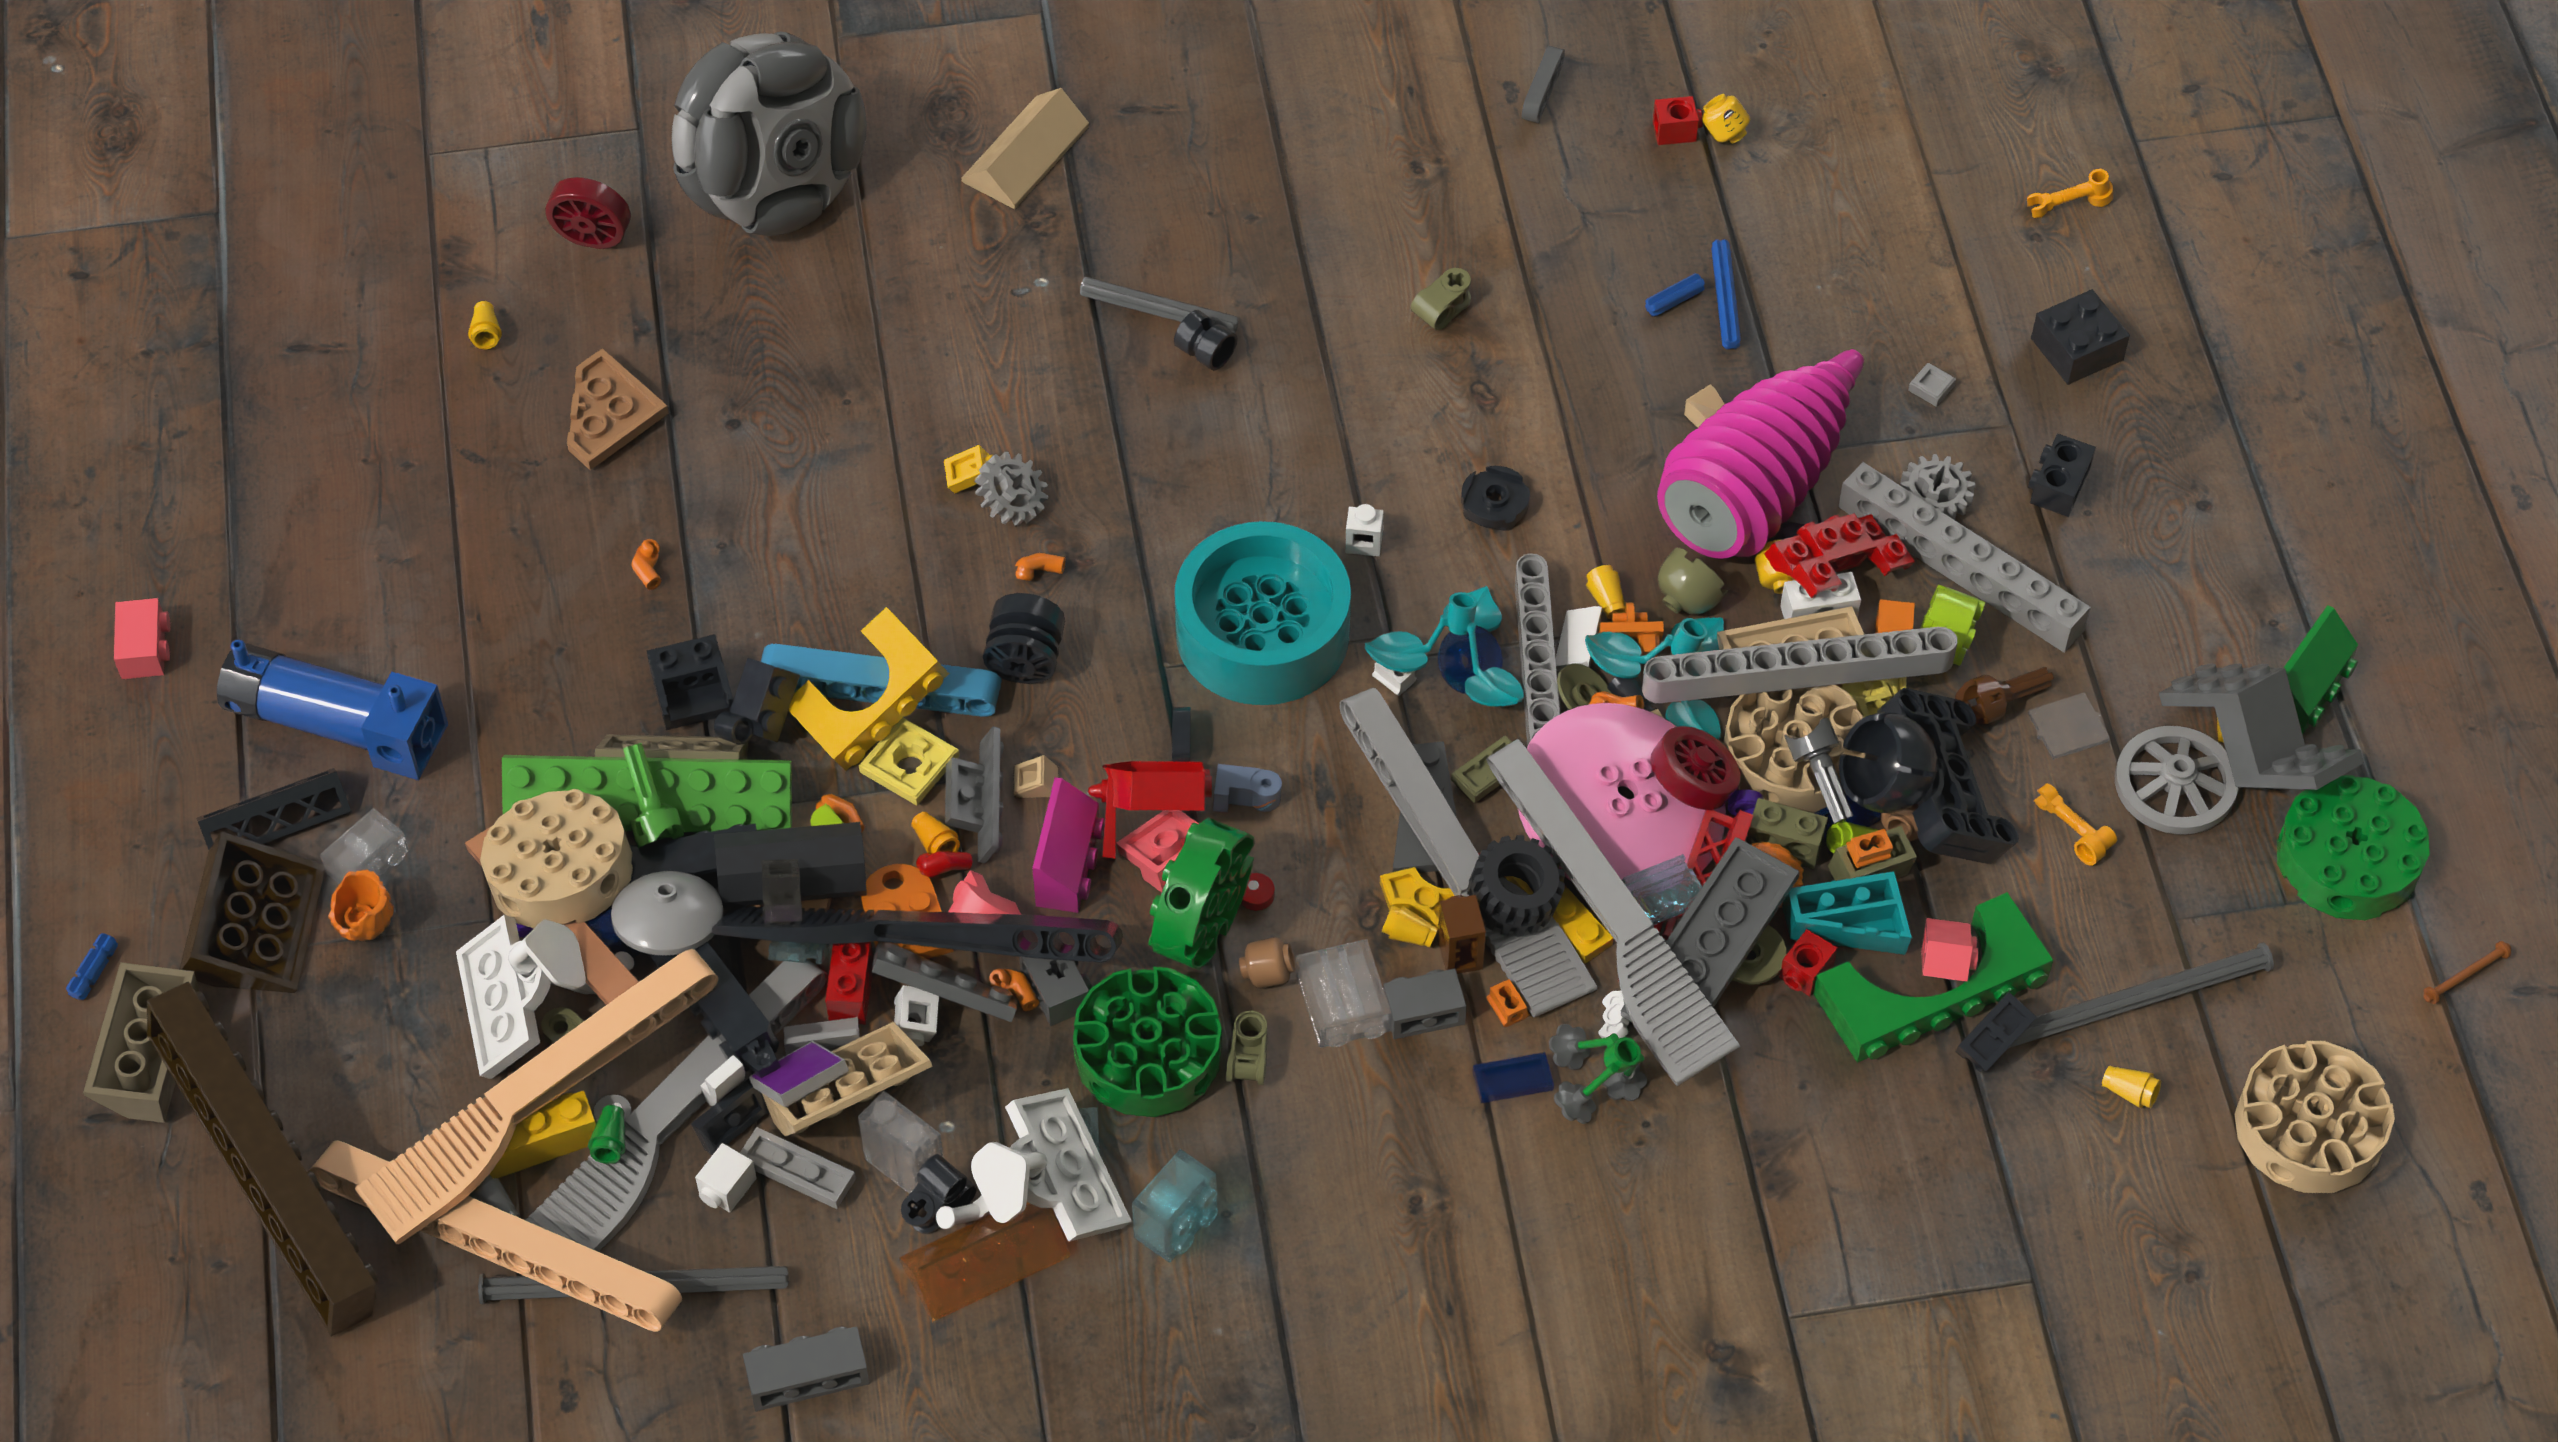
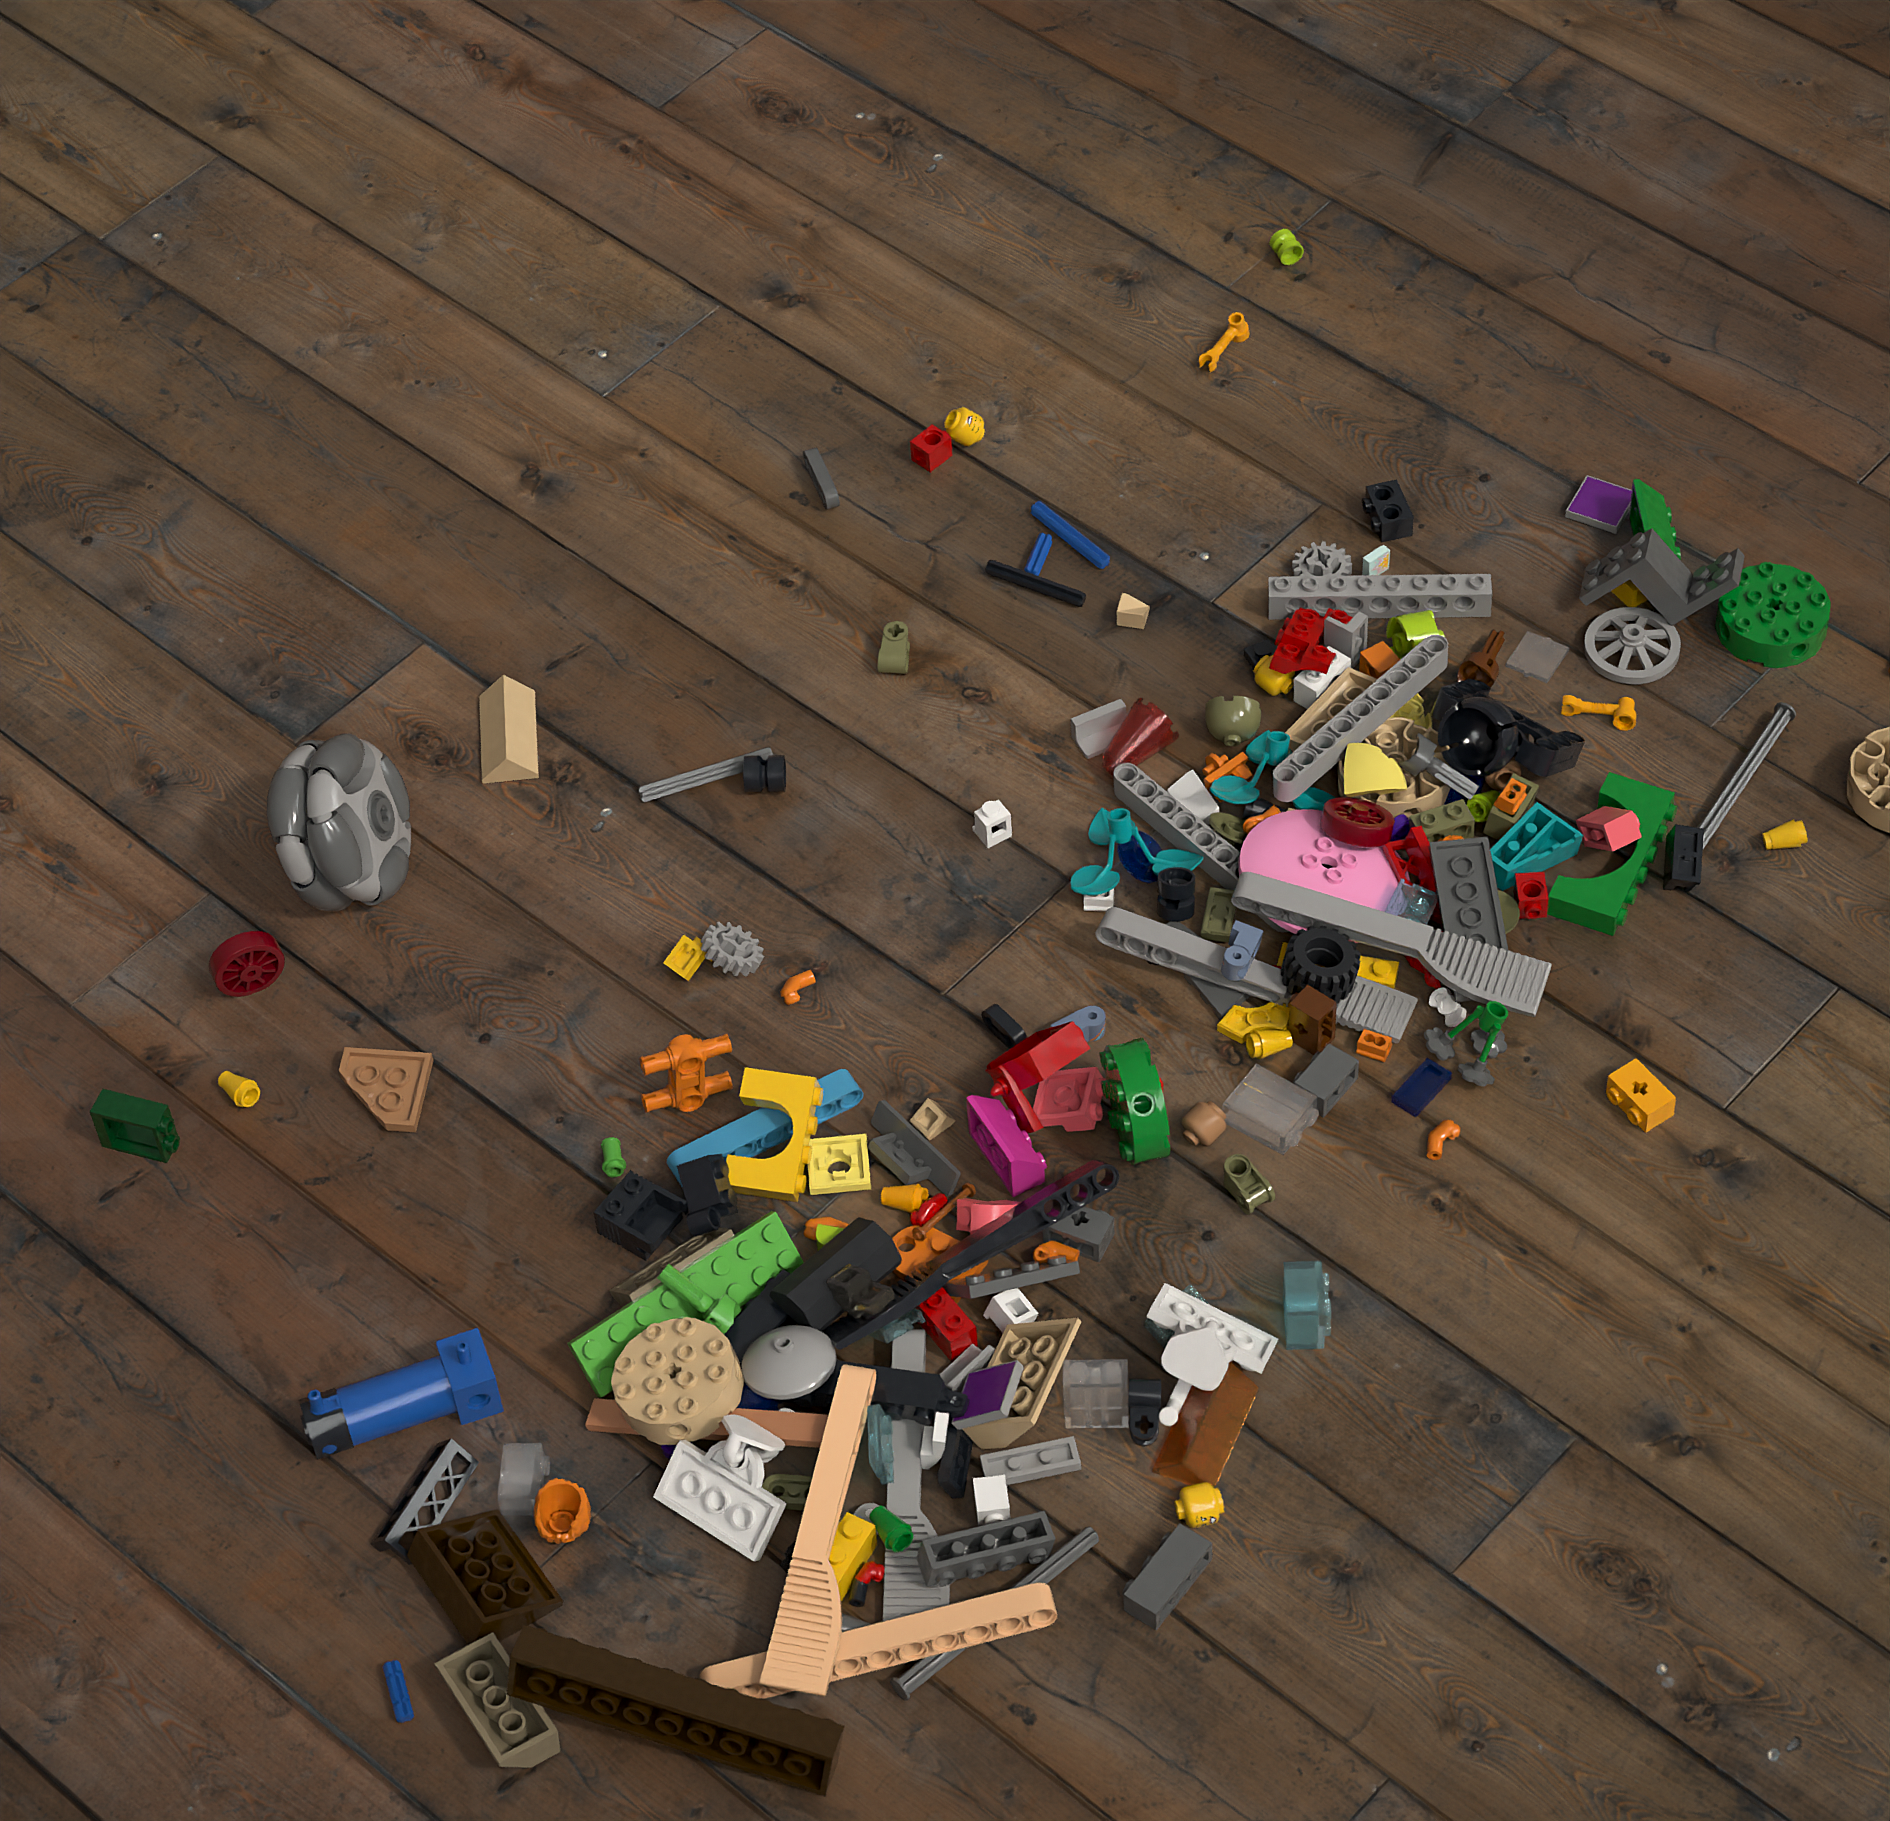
camera: 35 degrees left, 5 degrees down
(140, 638) = (203, 1456): coral brick -> none
(362, 298) = (135, 1125): none -> dark green window
(548, 1165) = (861, 1581): none -> arm
(644, 563) = (519, 1165): orange arm -> none
(666, 1217) = (985, 1549): none -> dark grey brick
(669, 1049) = (880, 1443): none -> clear light blue plate
(722, 617) = (613, 1162): none -> bright green pin
(845, 575) = (686, 1073): none -> orange piece
(901, 1323) = (1199, 1505): none -> yellow head
(909, 878) = (920, 1233): none -> dark orange axle
(1024, 638) = (843, 1033): black wheel -> none
(1147, 1041) = (1180, 1222): green brick -> none
(1272, 575) = (983, 914): teal wheel -> none
(1455, 819) = (1244, 946): none -> sand blue leg
(1460, 719) = (1176, 893): none -> black wheel
(1477, 1136) = (1445, 1129): none -> orange arm
(1495, 514) = (1053, 763): black plate -> none
(1562, 509) = (1096, 728): none -> light grey panel
(1579, 540) = (1139, 736): none -> clear red cone
(1606, 589) = (1181, 759): yellow cone -> none
(1644, 321) = (1035, 583): none -> black axle
(1714, 1261) = (1640, 1095): none -> light orange brick
(1752, 725) = (1371, 771): none -> light yellow brick
(1756, 458) = (1207, 617): dark pink cone -> none
(1880, 578) = (1348, 638): none -> light grey panel
(1932, 384) = (1252, 509): light grey tile -> none
(1995, 519) = (1376, 561): none -> light aqua tile
(2080, 336) = (1317, 422): black brick -> none
(2233, 135) = (1283, 244): none -> lime wheel
(2289, 609) = (1600, 504): none -> dark purple tile

